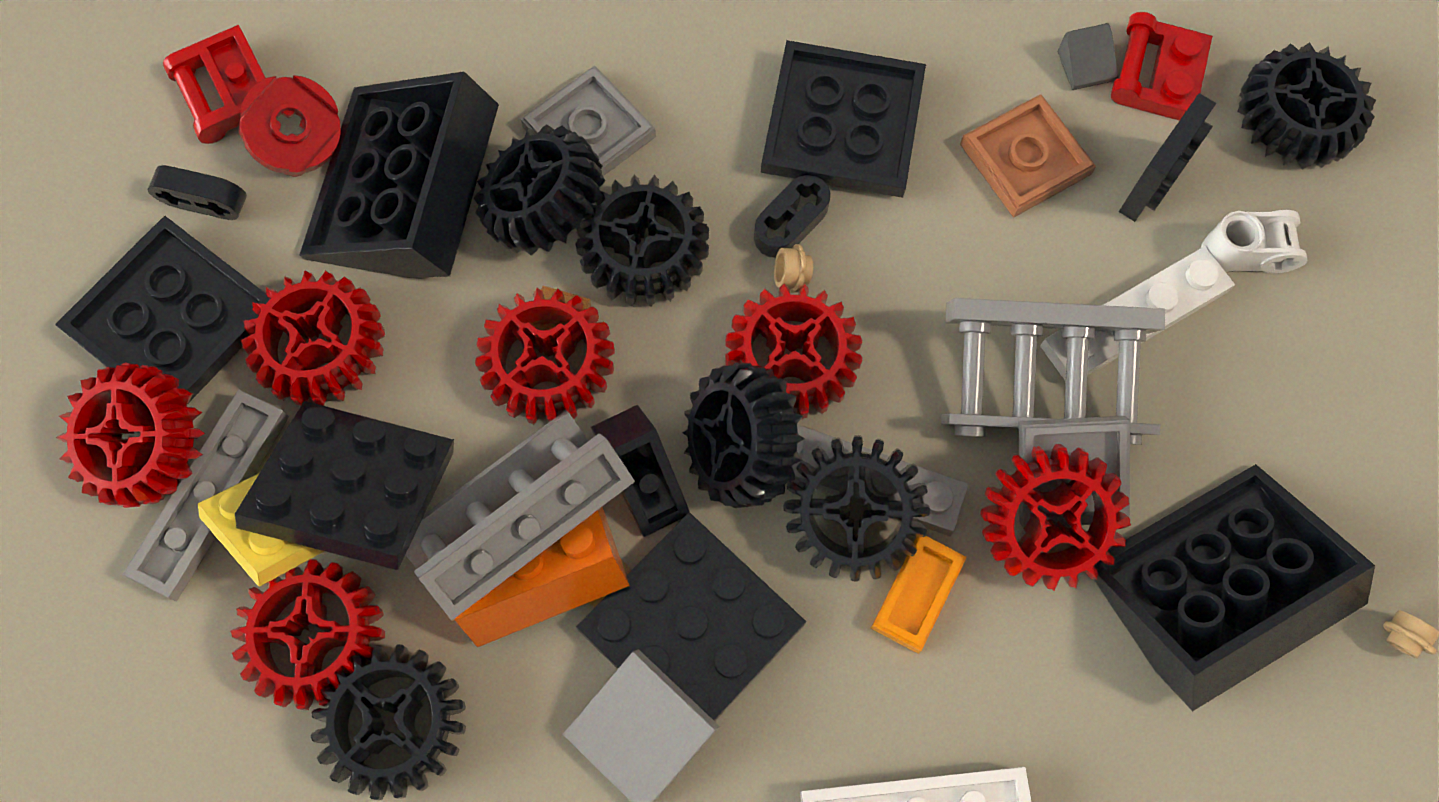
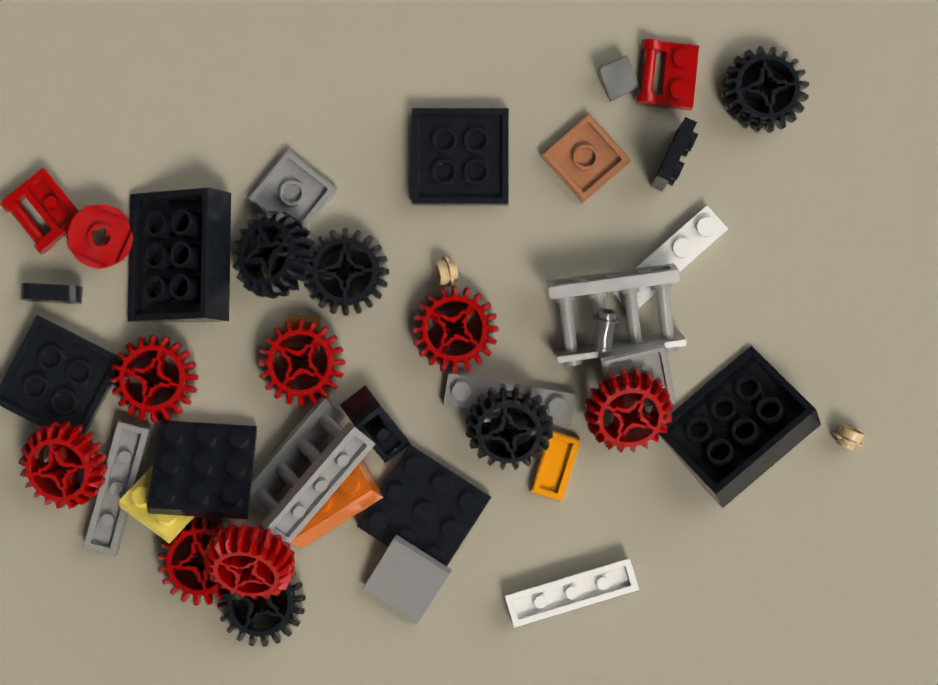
camera: 10 degrees left, 15 degrees up
(343, 625) = (249, 561): none -> red gear
(742, 435) = (433, 397): black gear -> none
(784, 209) = (431, 229): black beam -> none
(1033, 382) = (604, 329): none -> dark grey pin
(1262, 242) = (745, 196): white piece -> none

